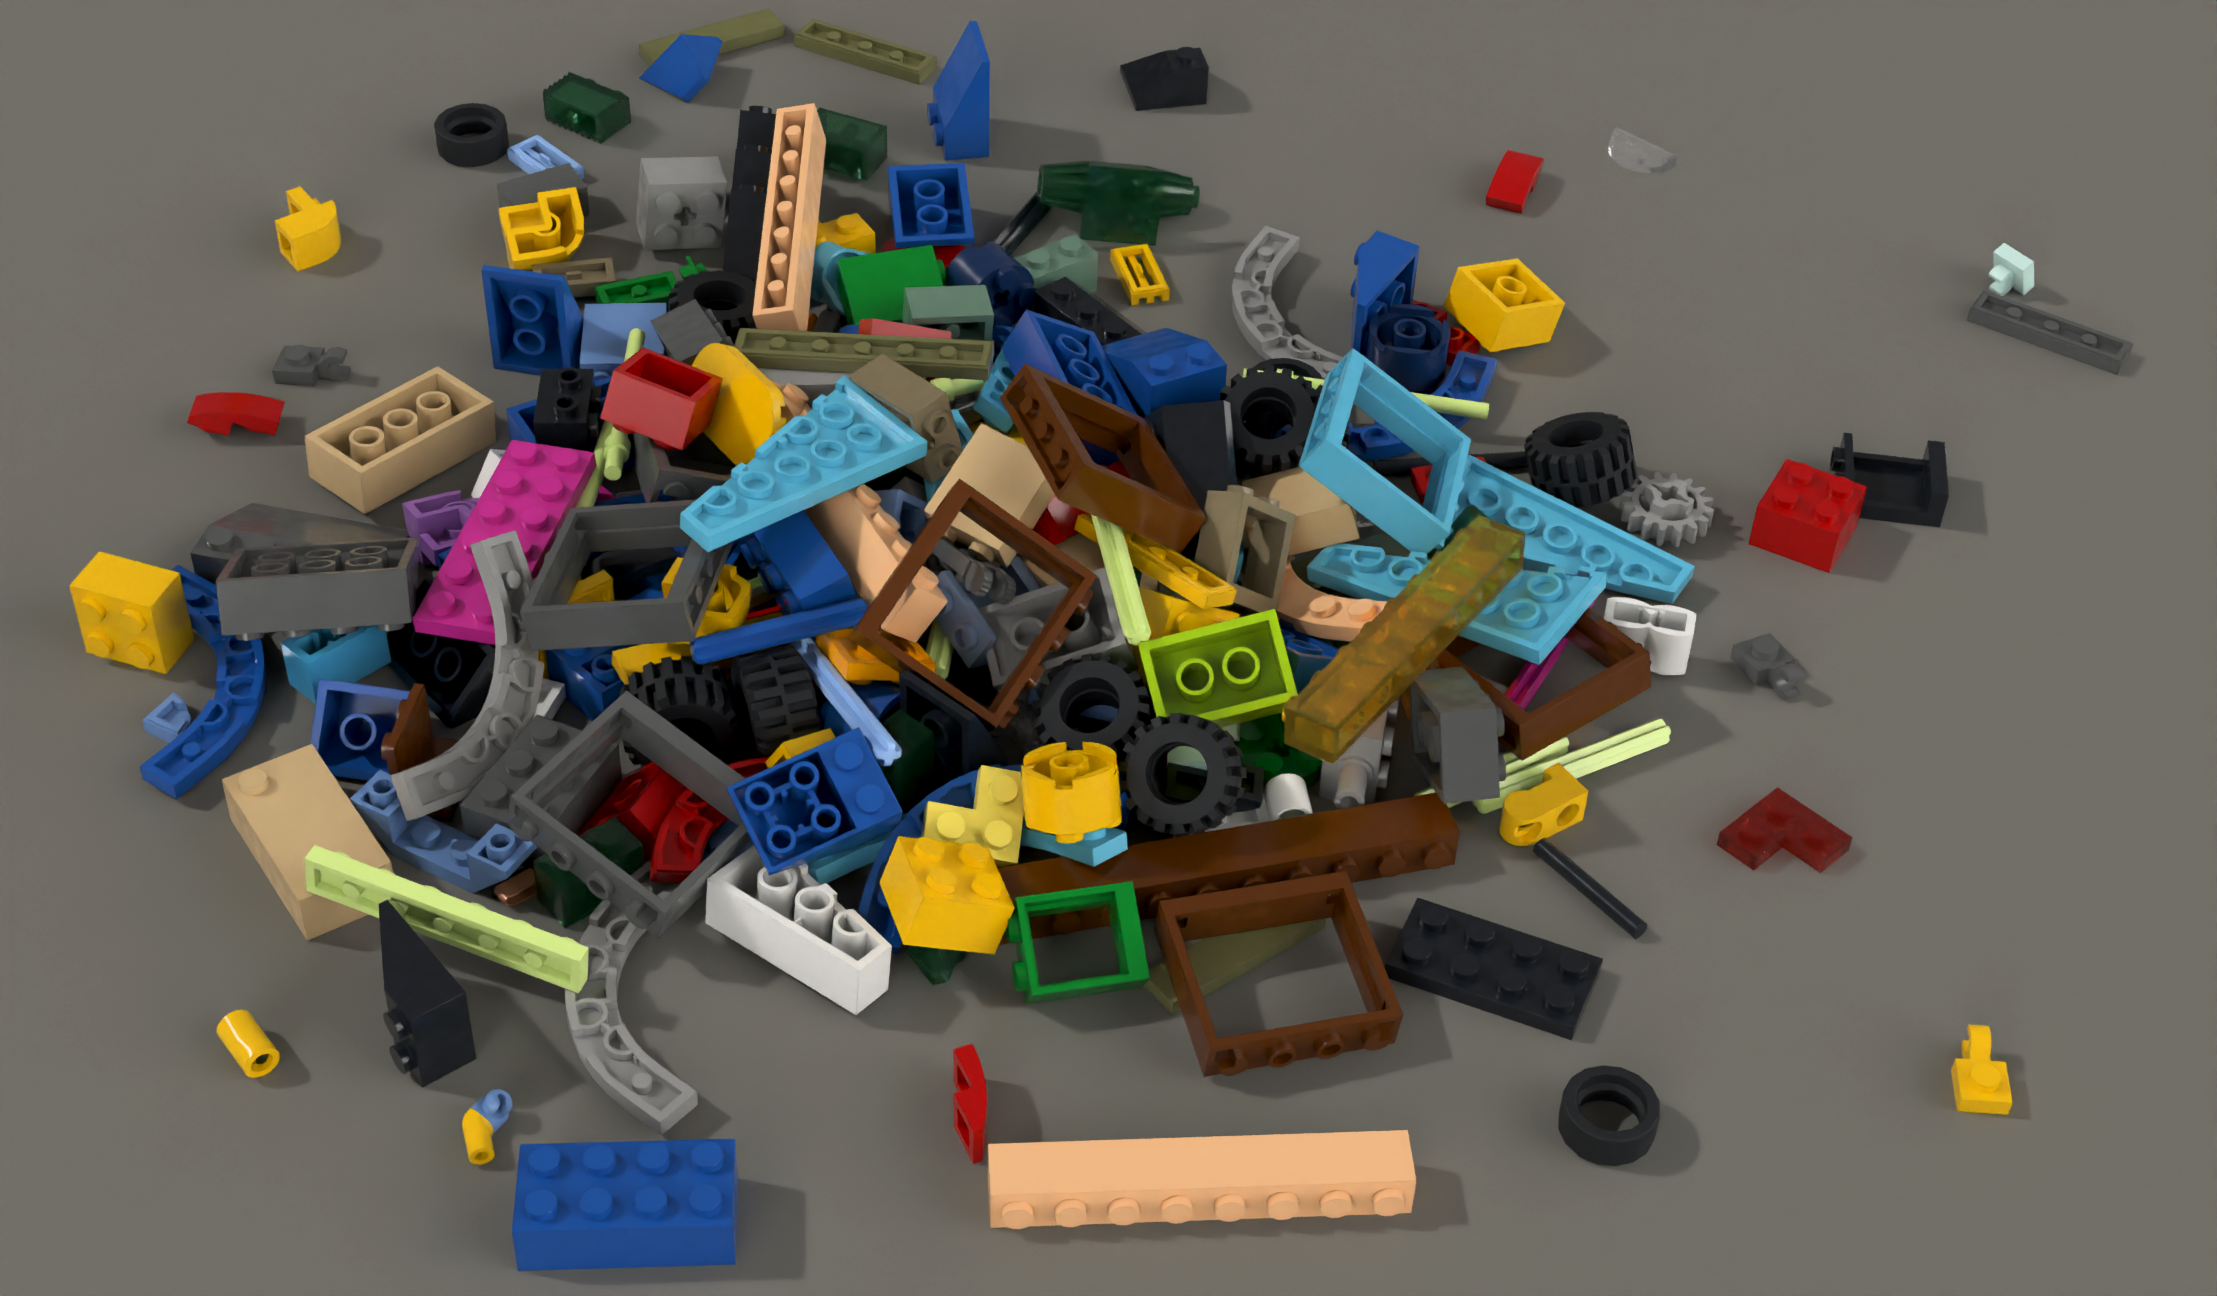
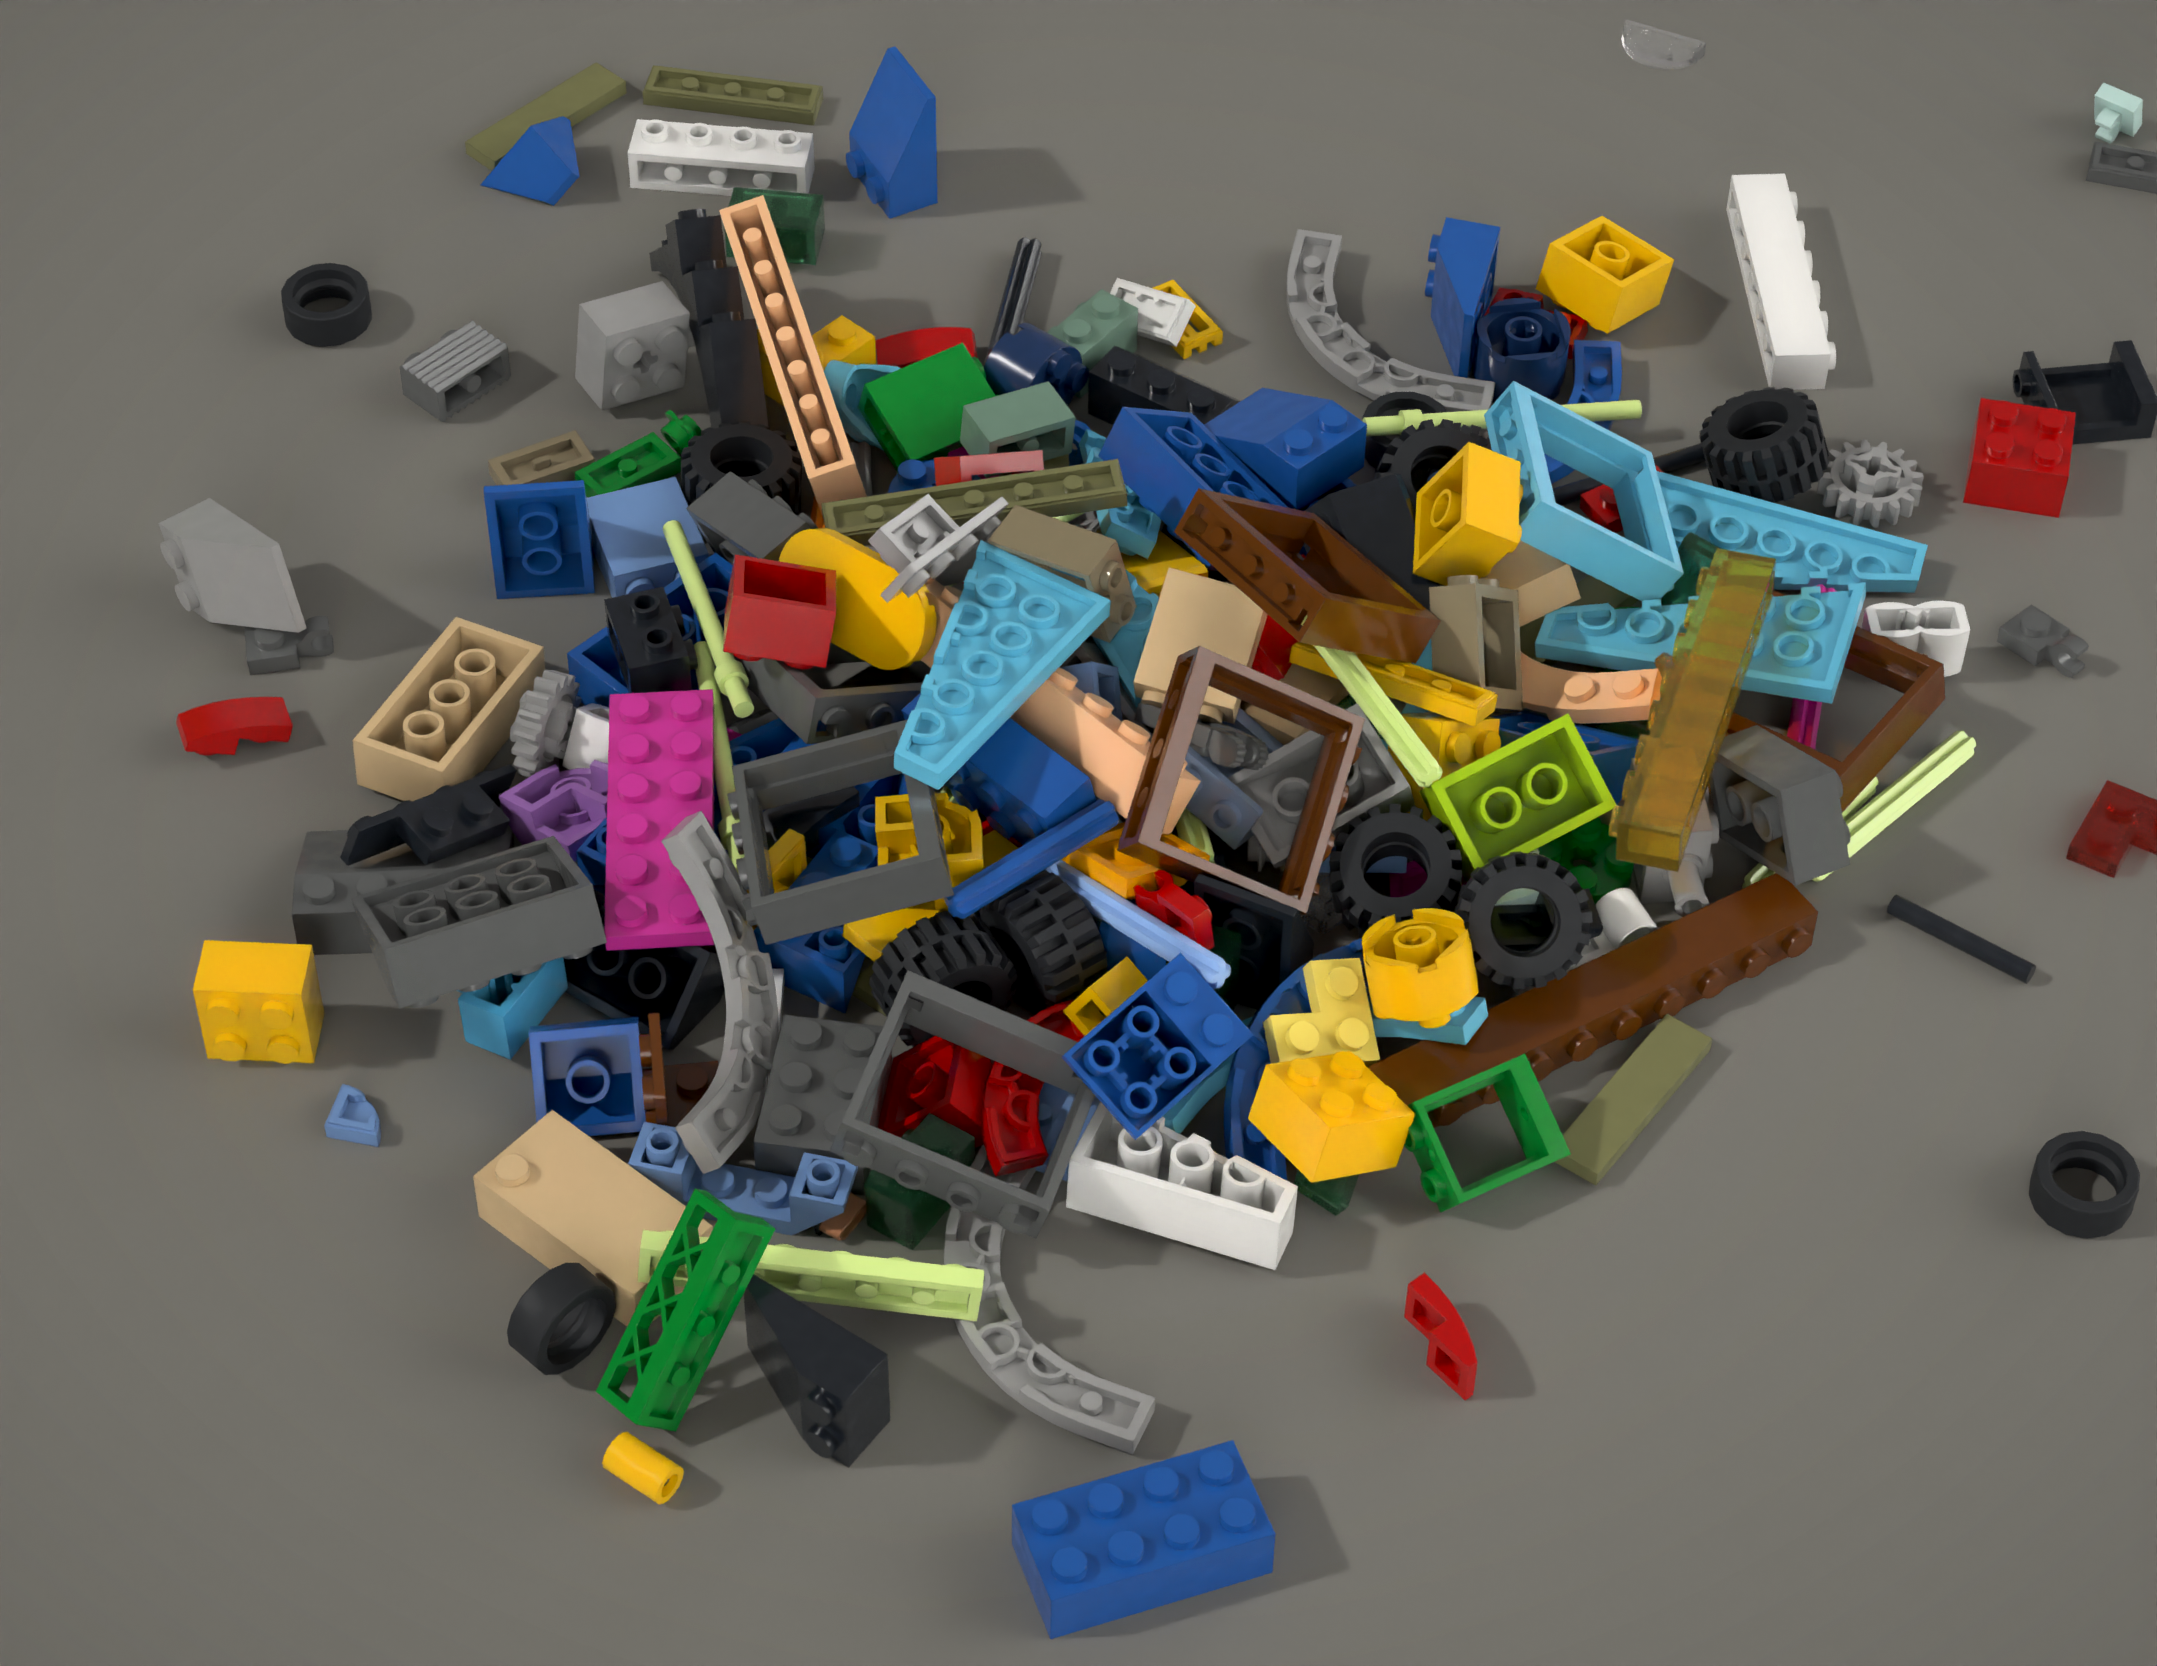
camera: 15 degrees left, 5 degrees up
(227, 717) = (416, 1063): blue plate -> none
(228, 882) = (561, 1318): none -> black tyre
(278, 296) = (229, 570): none -> light grey slope
(309, 232) = (194, 466): yellow brick -> none
(325, 923) = (690, 1320): none -> green fence
(337, 510) = (437, 823): none -> black bracket
(463, 454) = (544, 722): none -> light grey gear
(482, 1122) = (938, 1489): arm -> none
(532, 162) = (422, 326): light blue tile -> none
(544, 229) = (482, 414): yellow brick -> none
(586, 107) = (446, 240): clear green brick -> none
(794, 80) = (718, 158): none -> white brick
(794, 365) = (927, 540): none -> light grey bracket
(883, 700) = (1177, 909): none -> red plate
(930, 205) = (917, 288): blue slope -> none
(1116, 262) = (1159, 313): none -> white plate
(1117, 199) = (1124, 229): clear green plate -> none
(1167, 79) = (1102, 62): black slope -> none
(1200, 1179) = (1708, 1359): light nougat brick -> none
(1269, 441) = (1467, 515): none -> yellow brick
(1269, 907) = (1790, 1094): reddish brown window -> none
(1494, 968) = (1901, 1052): black plate -> none
(1514, 181) = (1542, 112): red slope -> none
(1544, 808) = (1885, 863): yellow leg -> none
(1659, 343) = (1779, 282): none -> white brick

